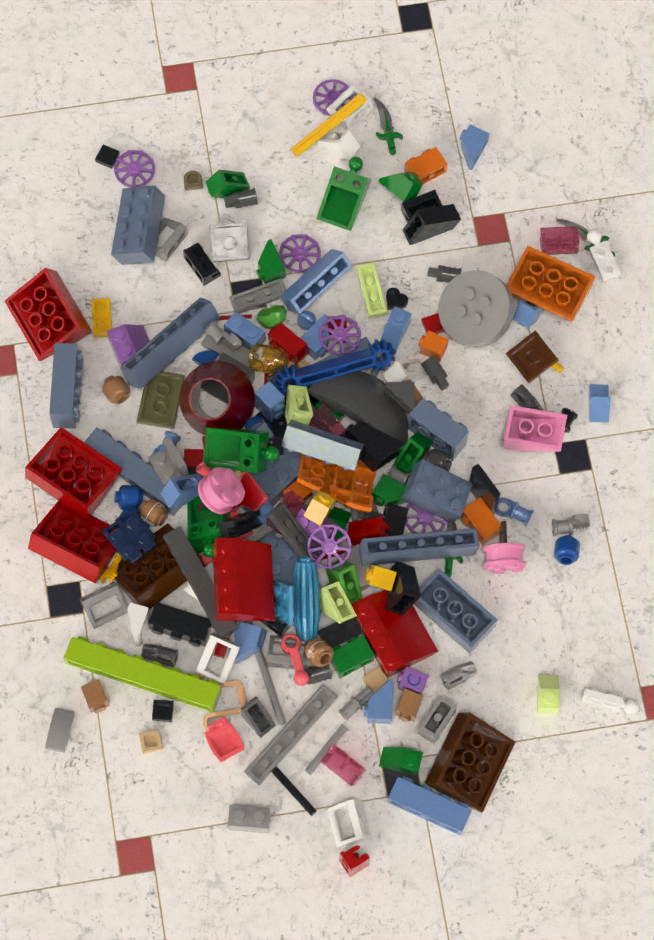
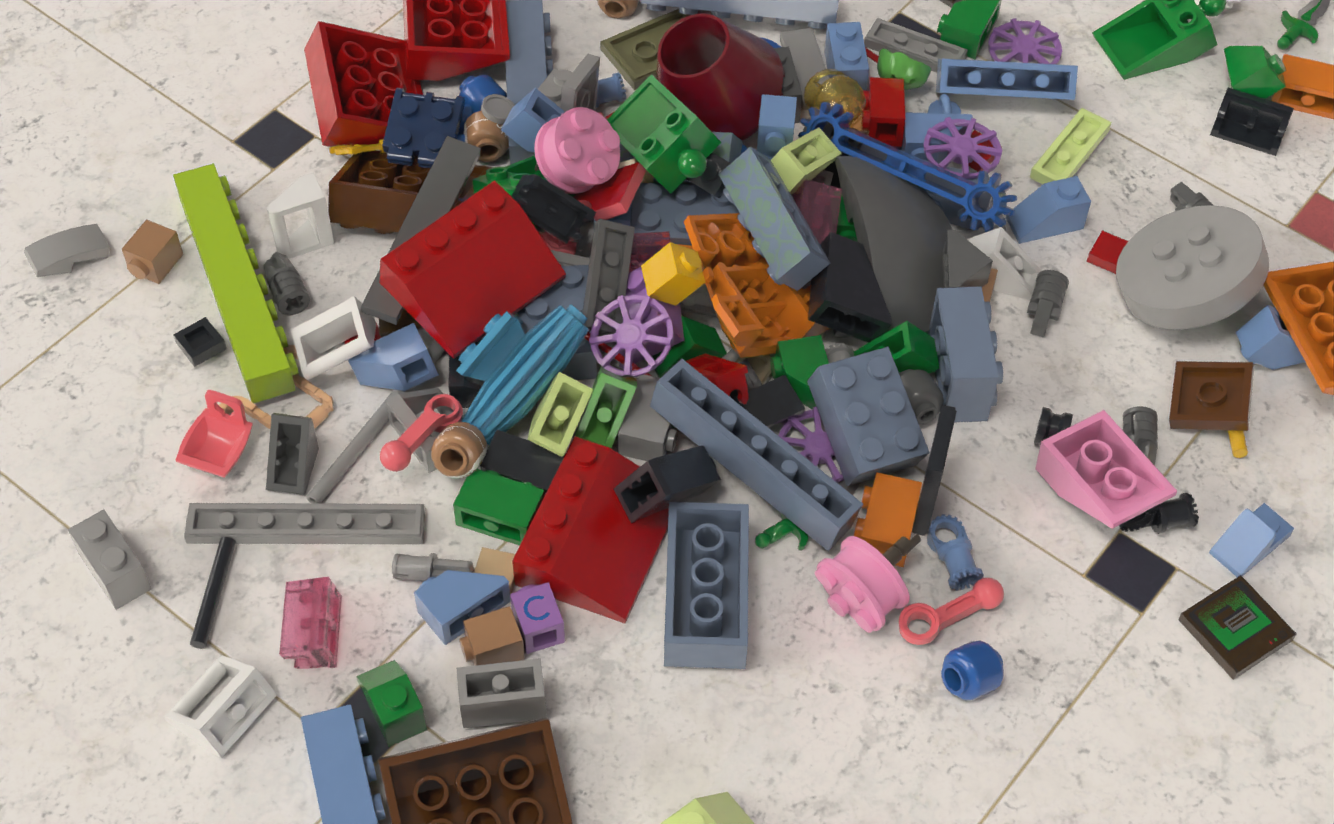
camera: 50 degrees right, 15 degrees down
(99, 595) = (285, 154): light grey tile -> none
(150, 498) = (496, 108): none -> light grey piece
(150, 741) = (141, 363): tan tile -> none
(179, 624) = (345, 259): black brick -> none
(221, 336) = (810, 37): light grey connector -> none
(318, 674) = (429, 484): dark grey hinge -> none
(333, 740) = (343, 584): light grey bar -> none
(352, 862) = (139, 748): red hinge -> none
(380, 577) = (651, 434): yellow brick -> none
(395, 298) = (1095, 183): black tile -> none
(430, 223) = (1246, 141): black slope -> none
(433, 345) = (1083, 268): orange brick -> none
(458, 675) = (610, 673): light grey hinge -> none
(494, 426) = (1051, 424): none -> black wheel
(540, 516) = (985, 594): none -> coral piece
(567, 526) = (1034, 652): light grey connector -> none
(626, 443) = (1237, 627): none -> dark brown tile

